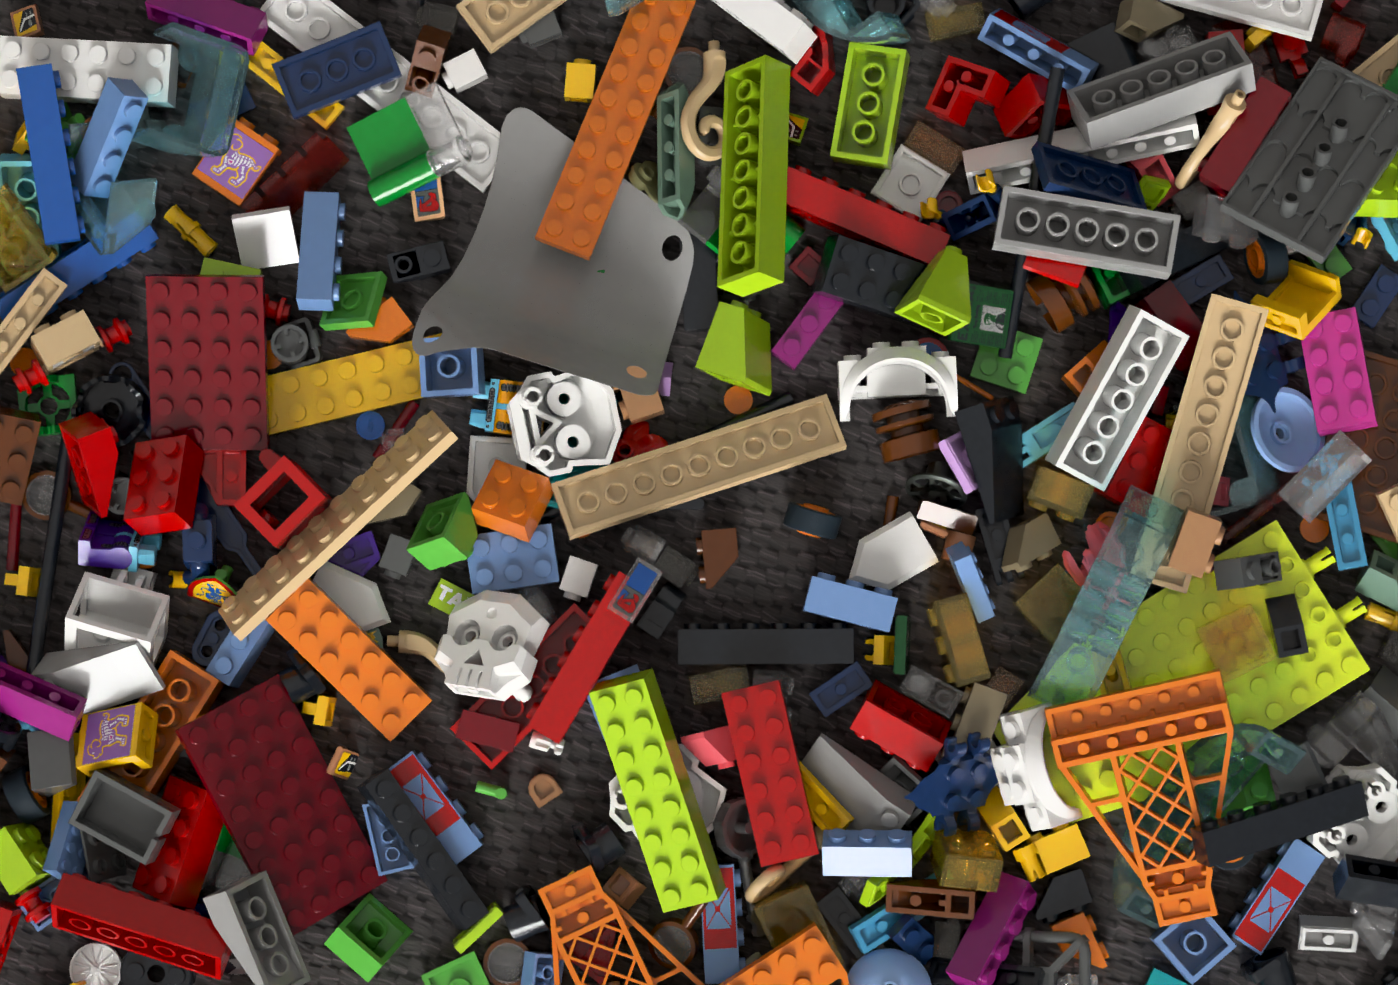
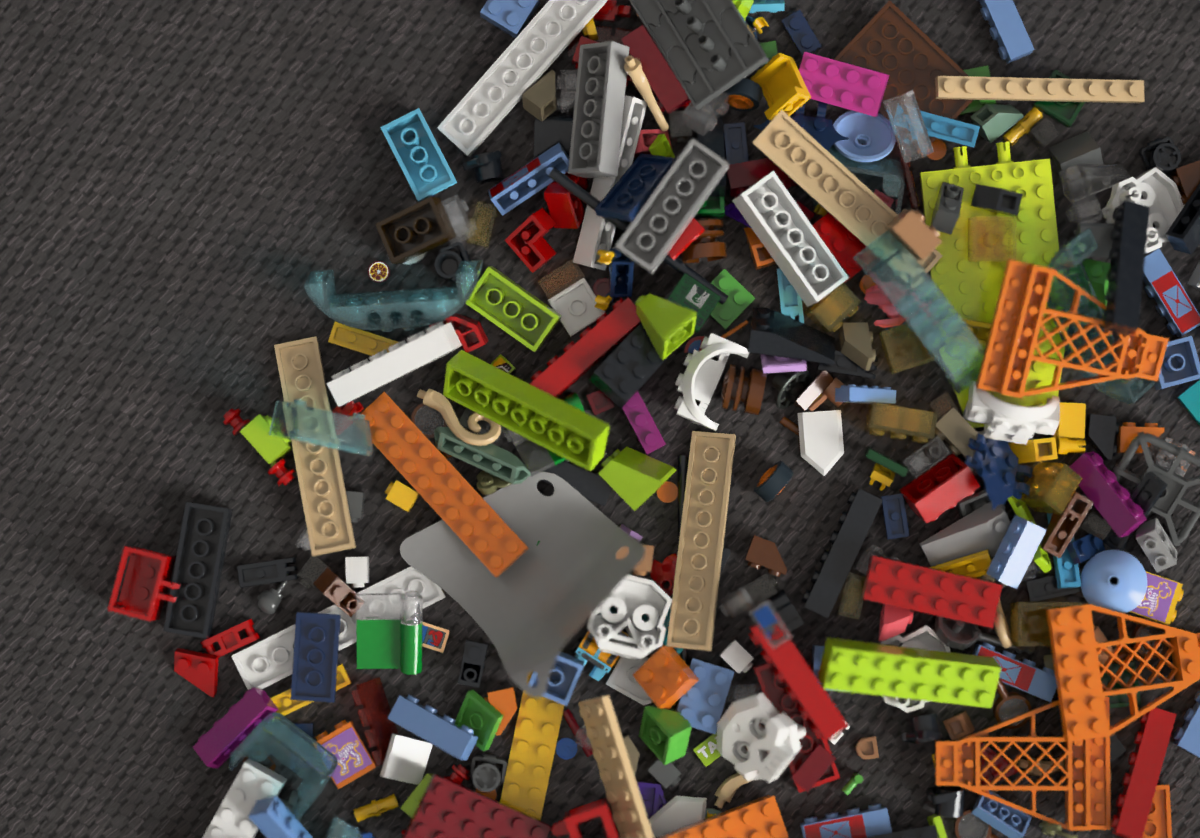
camera: 65 degrees left, 0 degrees up
(850, 602) = (841, 482): medium blue brick -> none

